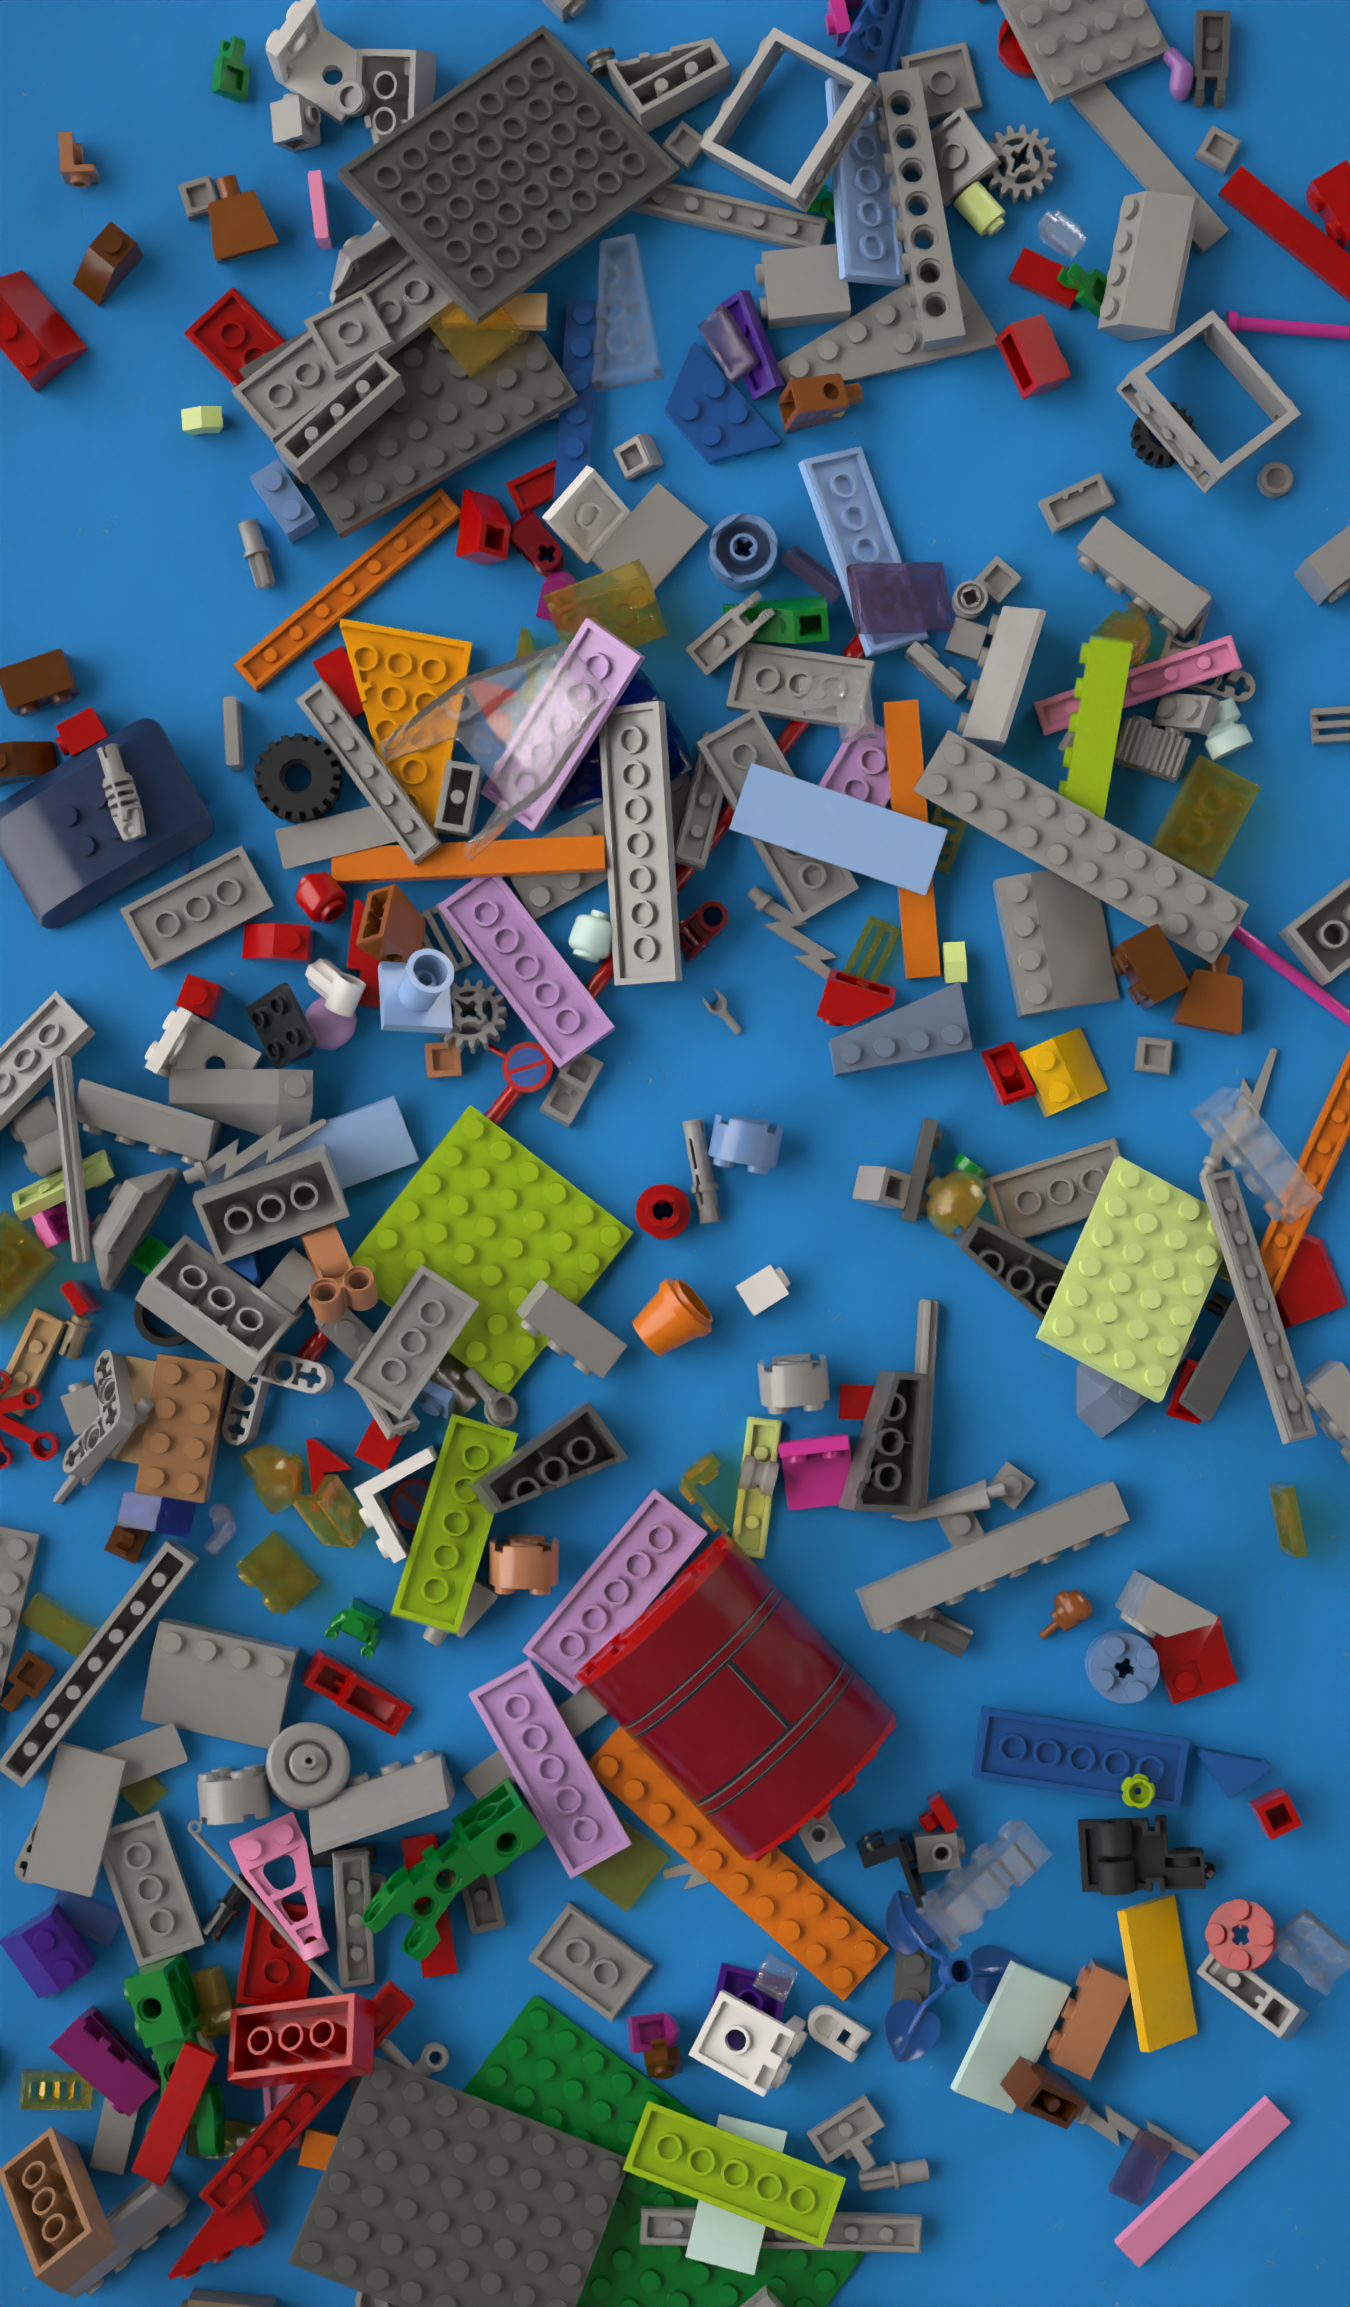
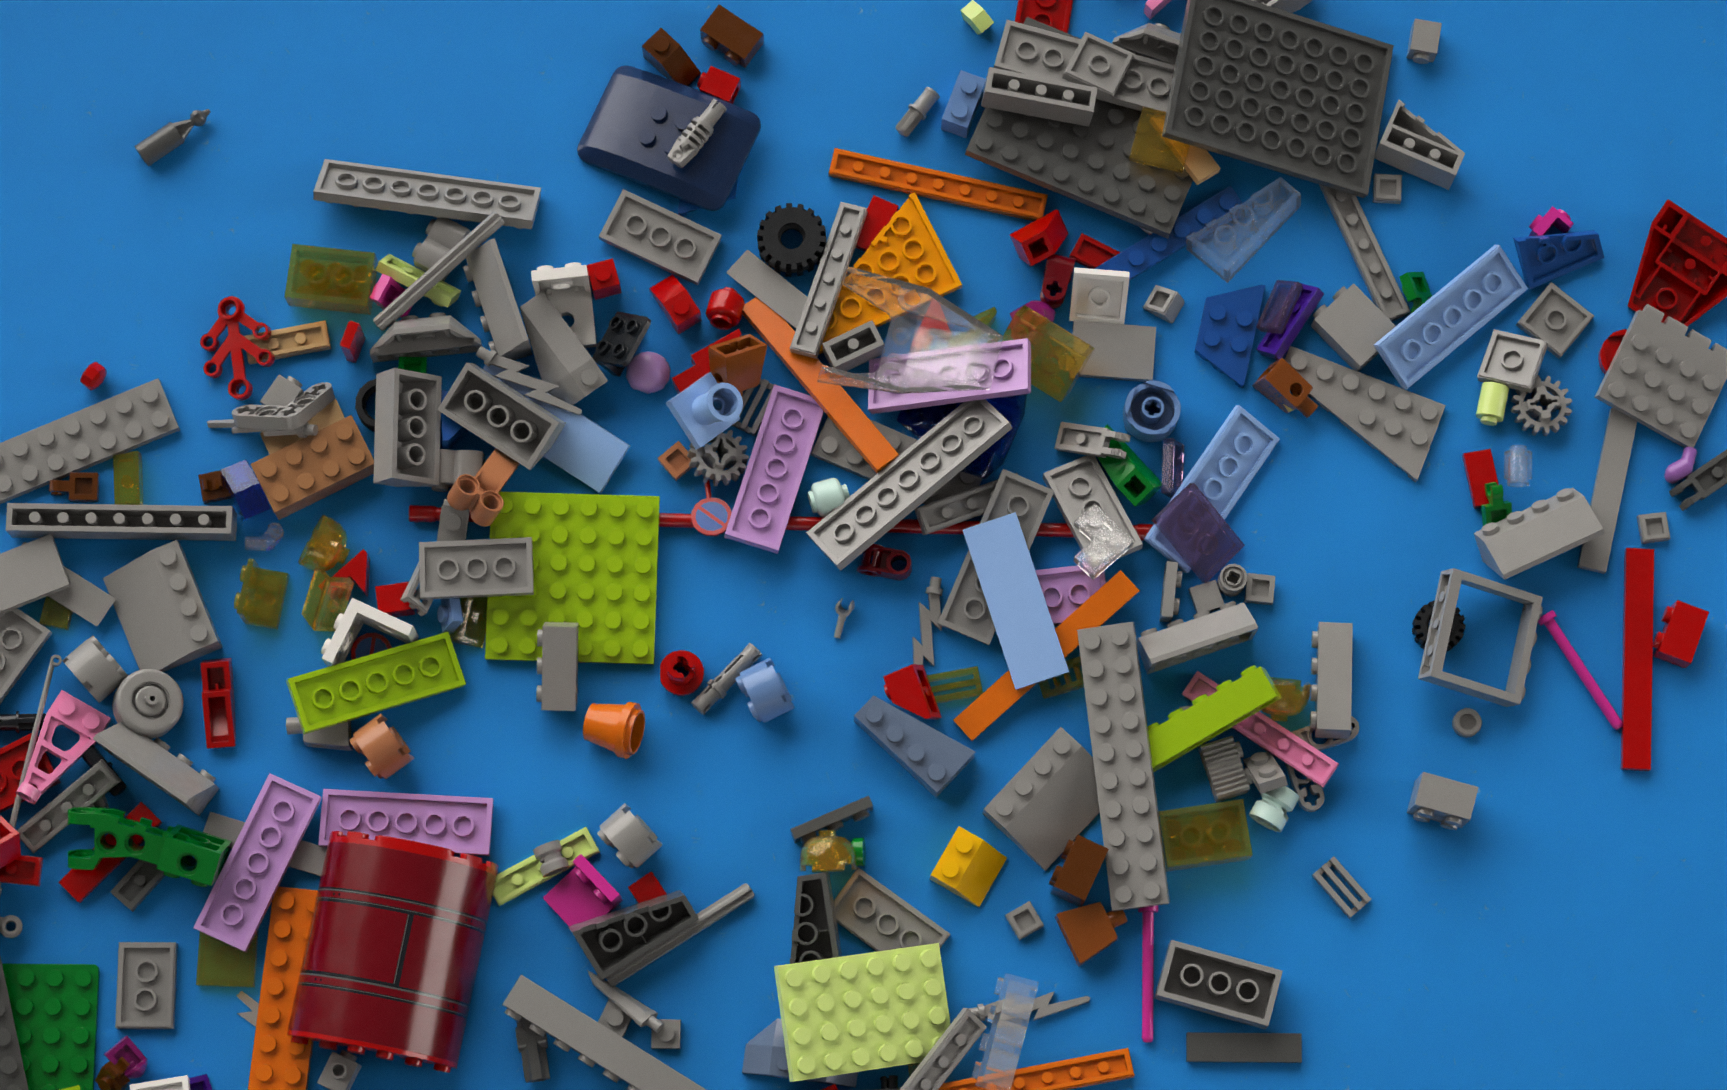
camera: 55 degrees right, 10 degrees down
(75, 1336) = (325, 358): dark tan pin -> none
(233, 733) = (790, 179): light grey tile -> none
(270, 1373) = (388, 494): light grey beam -> none
(338, 988) = (673, 357): white piece -> none
(361, 1622) = (267, 671): green piece -> none
(499, 1407) = (474, 660): light grey plate -> none
(555, 1457) = (468, 717): dark grey wedge -> none
(571, 1089) = (719, 556): light grey slope -> none
(598, 61) = (1398, 94): dark grey bush -> none
(703, 1471) = (527, 818): clear yellow bracket -> none
(763, 1289) = (677, 774): white brick -> none
(829, 146) = (1451, 274): light grey window -> none
(881, 1187) = (802, 801): light grey brick -> none
(905, 89) = (1529, 297): light grey brick -> none
(954, 962) = (987, 743): yellowish green piece -> none
(1007, 1074) = (939, 829): red slope -> none
(1033, 356) = (1422, 505): red brick -> none
(1076, 503) = (1350, 603): light grey plate -> none

